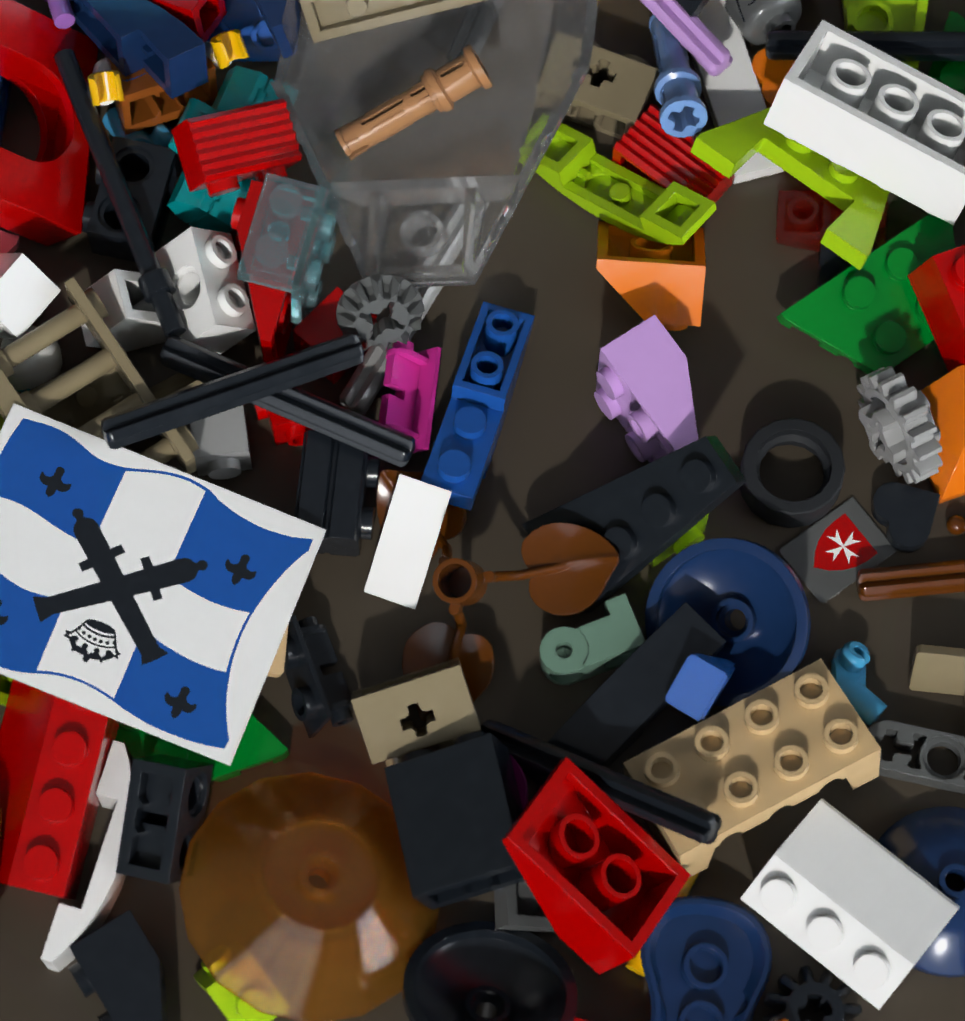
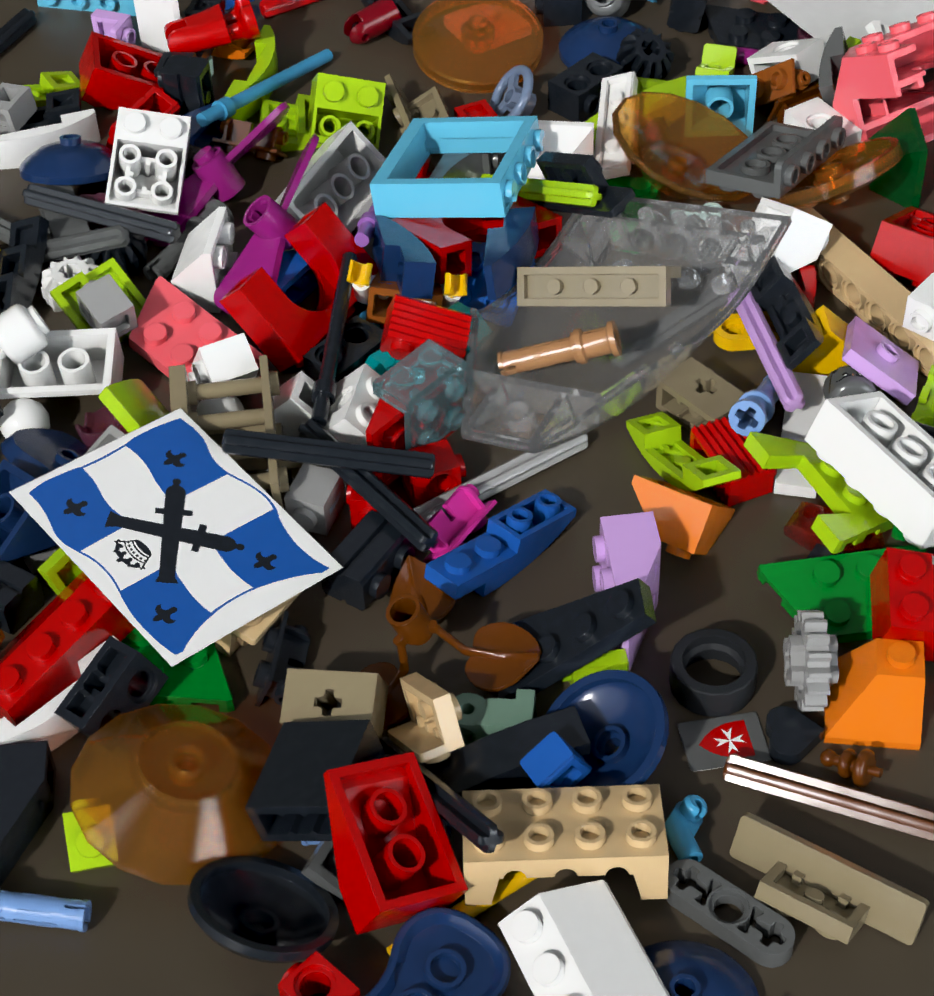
camera: 30 degrees right, 25 degrees down
(371, 296) = (480, 451): dark grey gear -> none
(407, 541) = (415, 578): white sticker -> none
(533, 690) = (433, 721): none -> tan bracket

